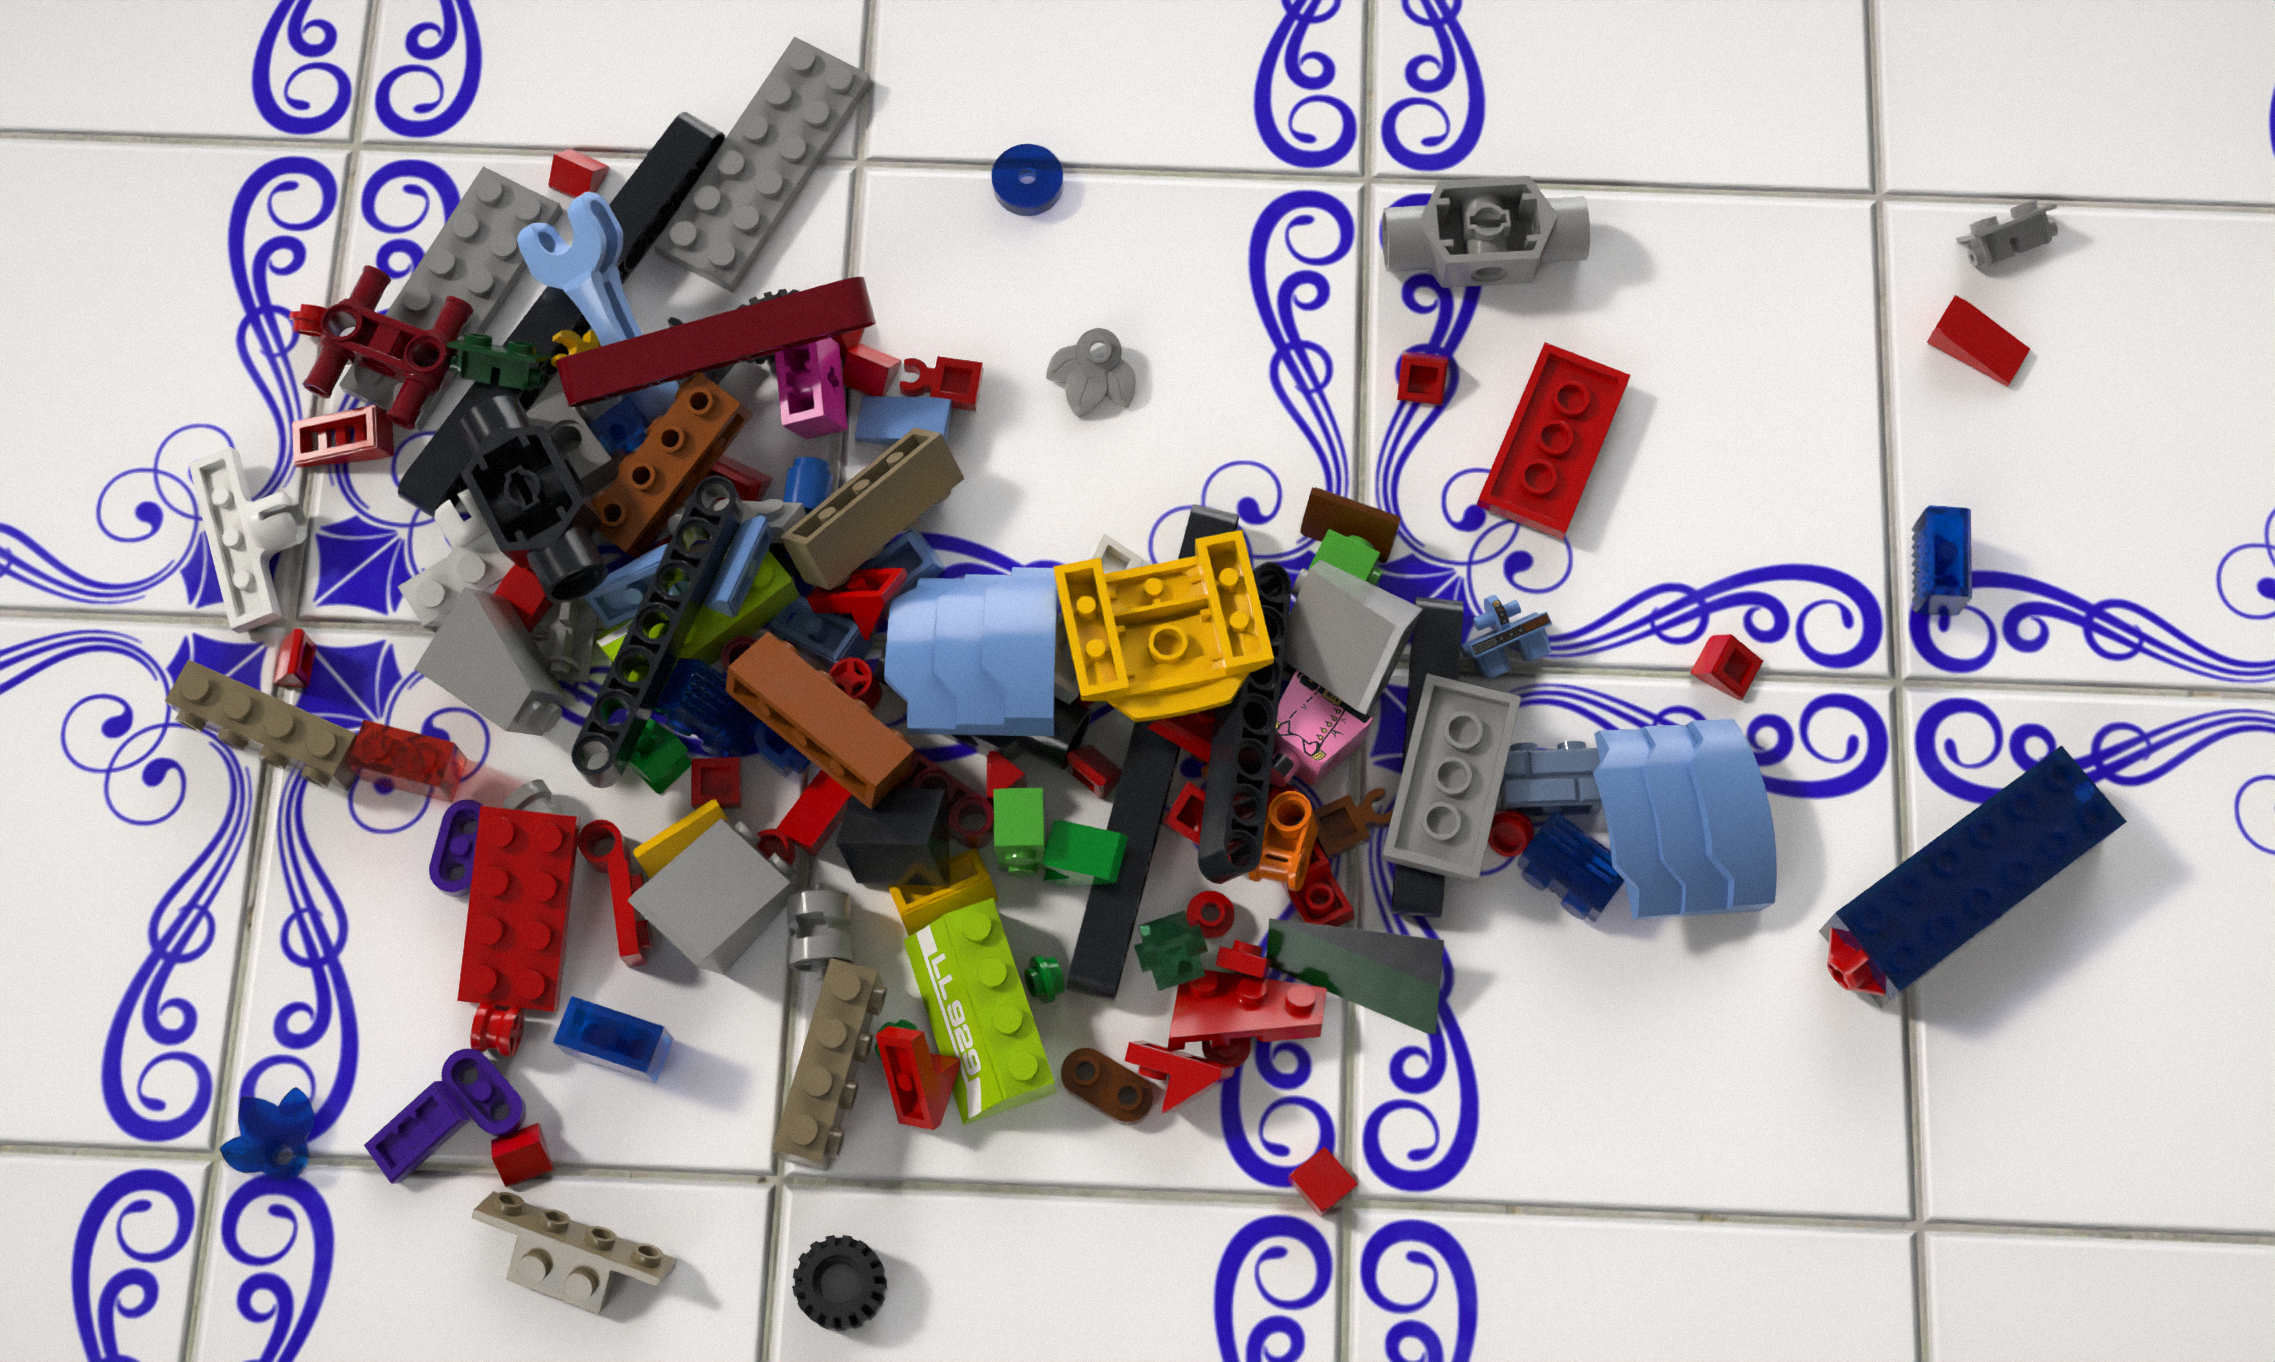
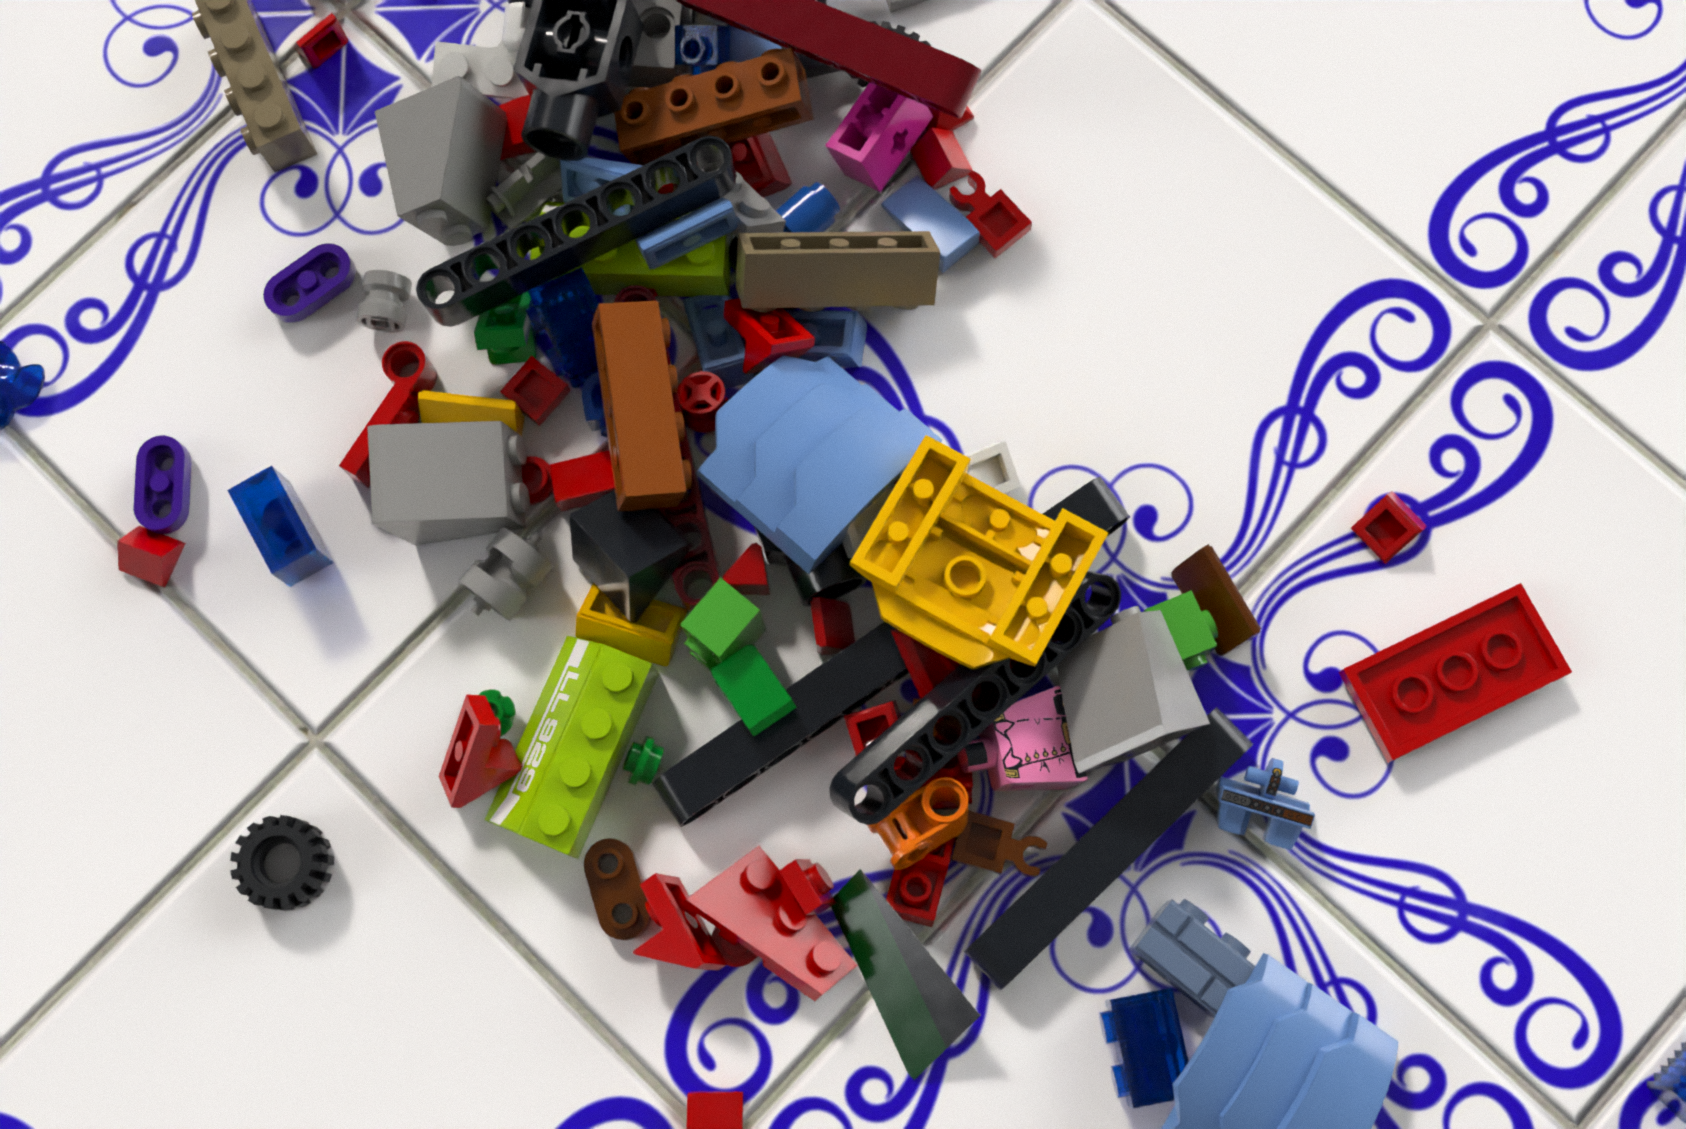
camera: 45 degrees right, 5 degrees up
(407, 761) = (326, 183): clear red brick -> none
(417, 1132) = (90, 473): dark purple plate -> none
(497, 1029) = (211, 444): red wheel -> none
(519, 908) = (305, 364): red plate -> none
(567, 1256) = (114, 662): dark tan bracket -> none
(828, 1065) = (419, 686): dark tan brick -> none
(1027, 161) = (1208, 83): clear blue piece -> none
(1093, 378) = (1111, 307): light grey plate -> none
(1171, 950) = (757, 827): clear green brick -> none
(1213, 929) = (821, 840): red plate -> none
(1451, 778) = (1106, 887): light grey plate -> none
(1485, 232) = (1553, 448): light grey brick -> none
(1510, 832) = (1119, 970): red plate -> none
(1727, 665) = (1435, 989): red slope -> none

